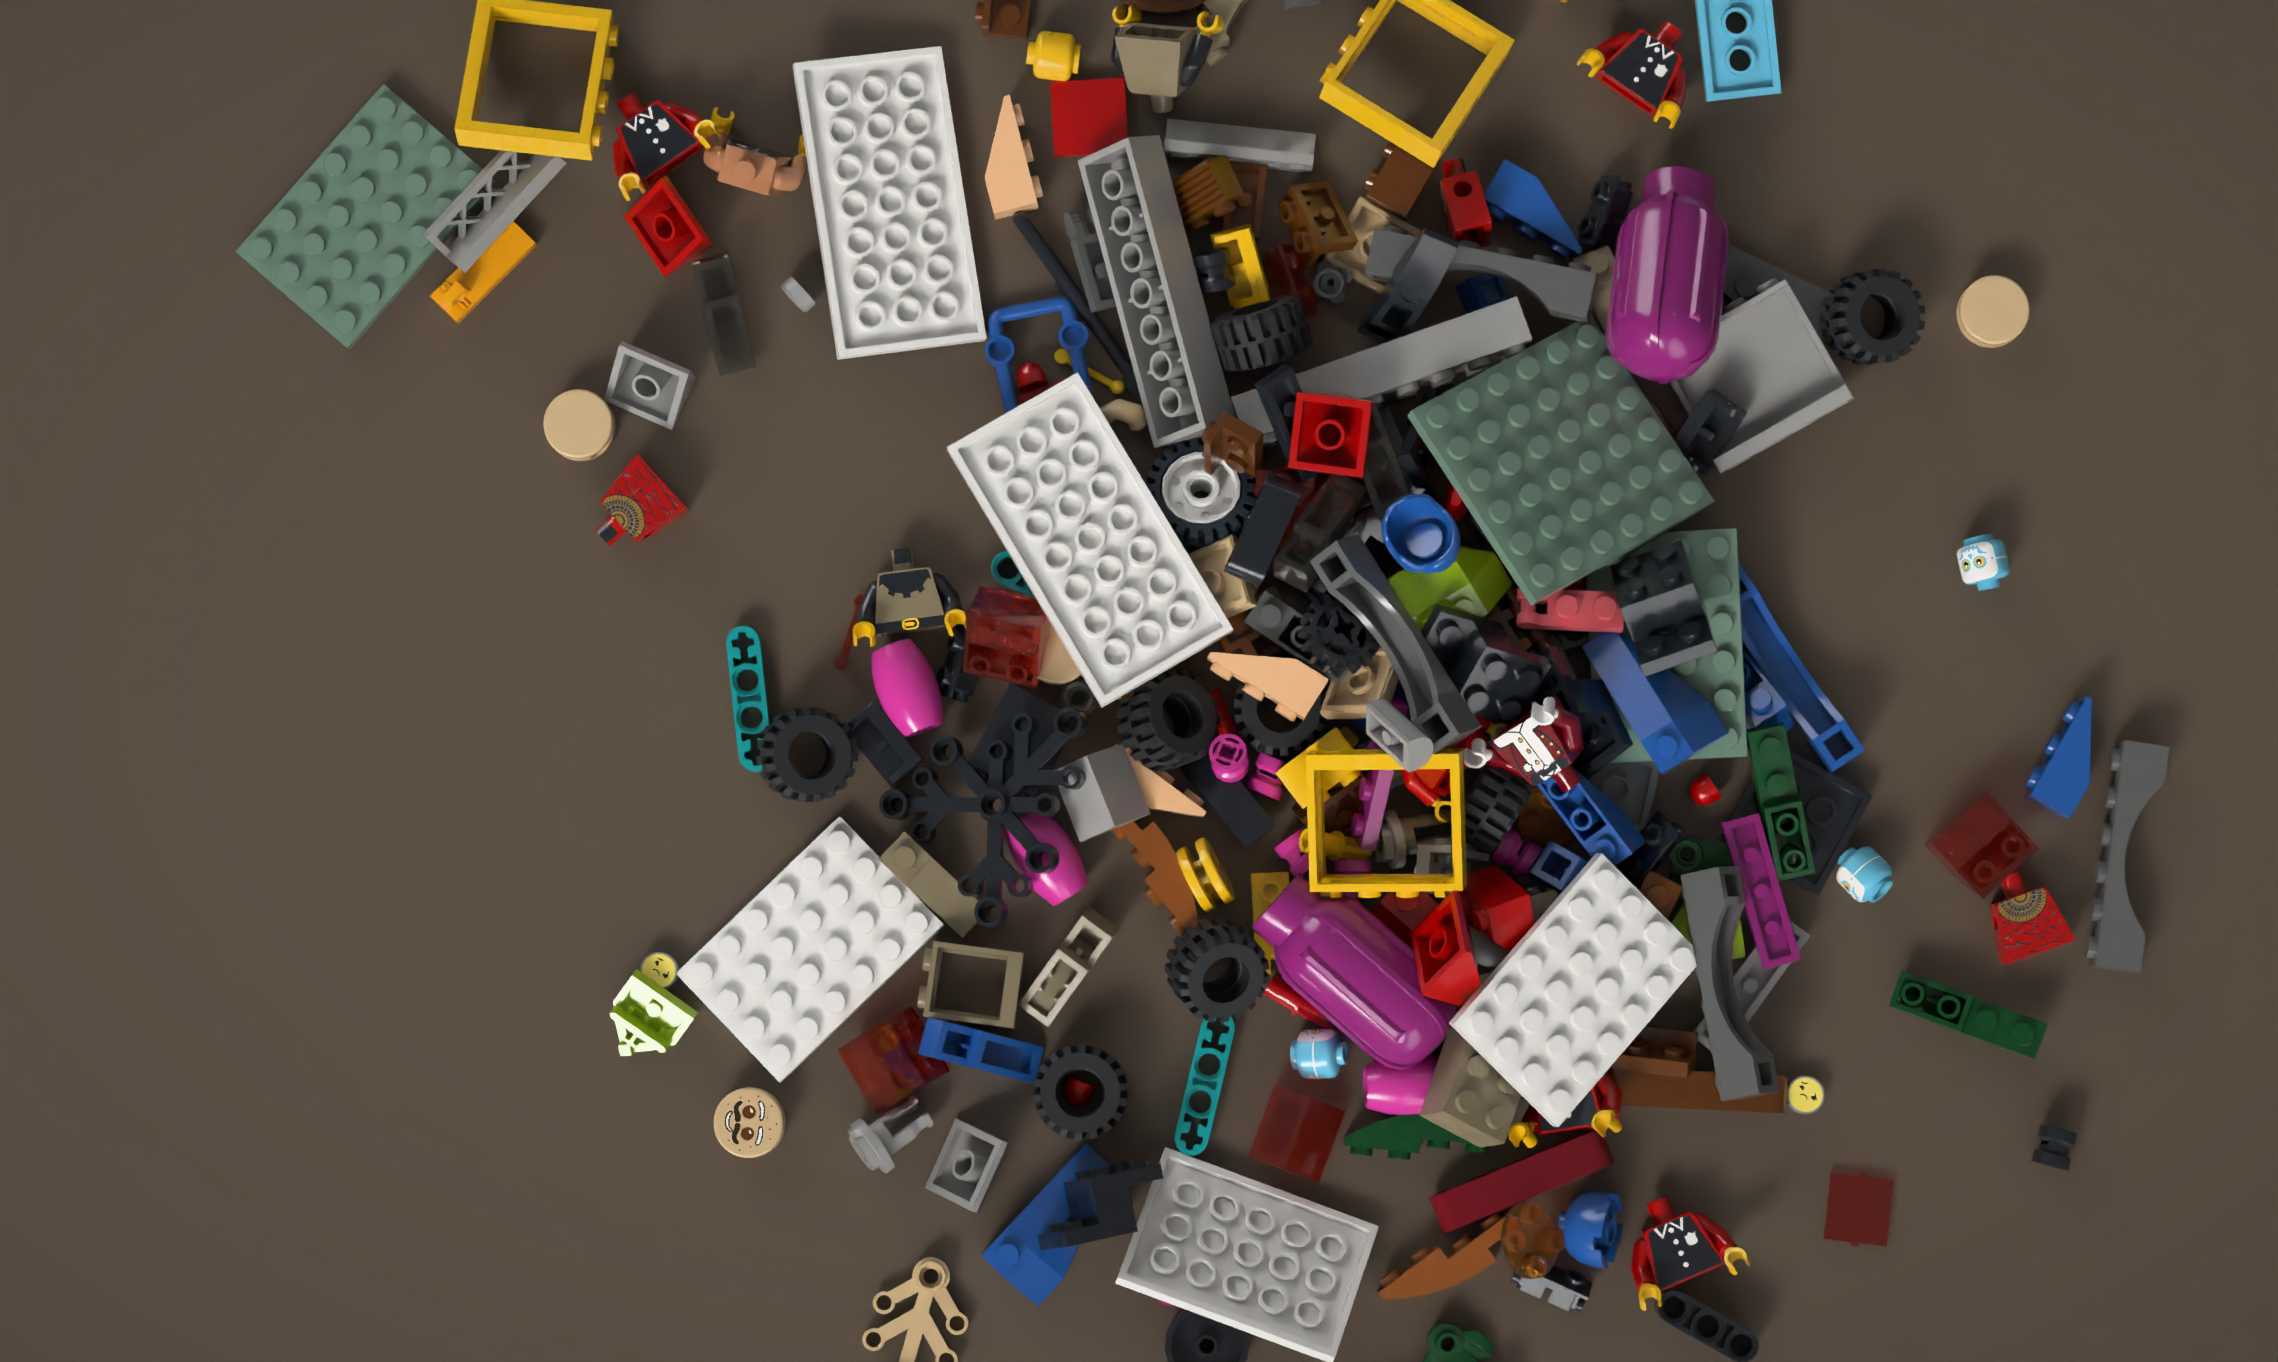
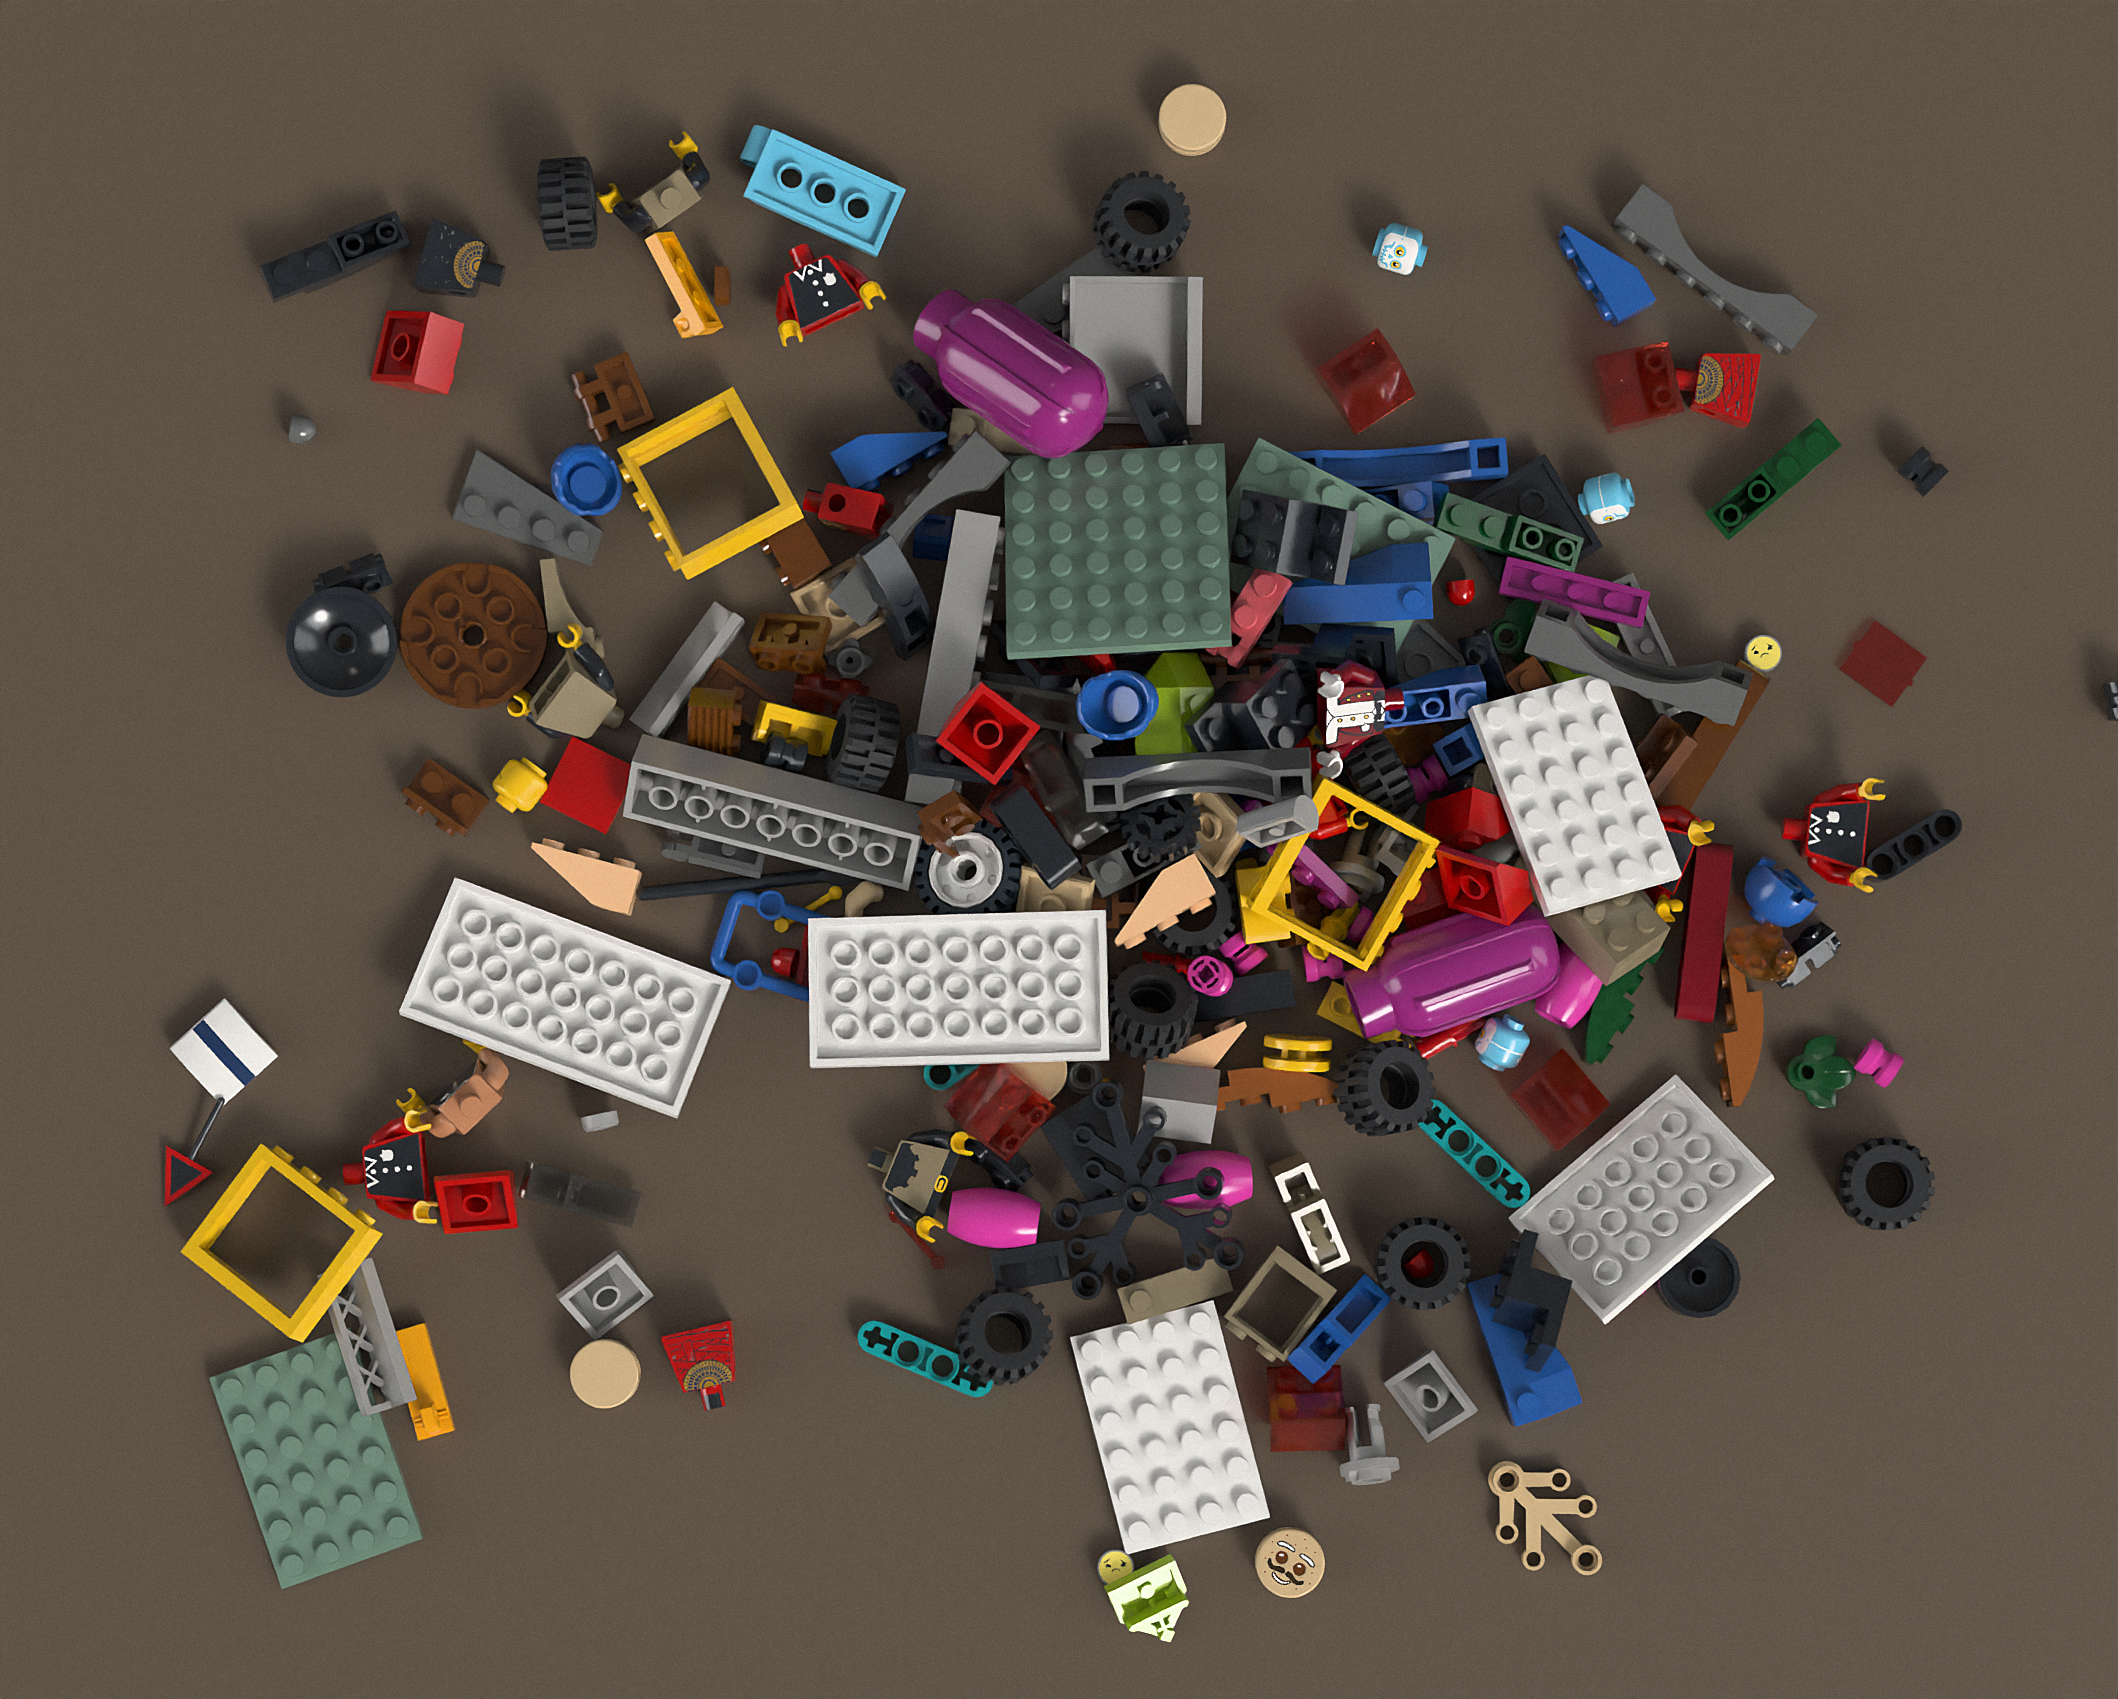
camera: 70 degrees left, 0 degrees up
(1844, 598) = (1365, 381): none -> clear red slope

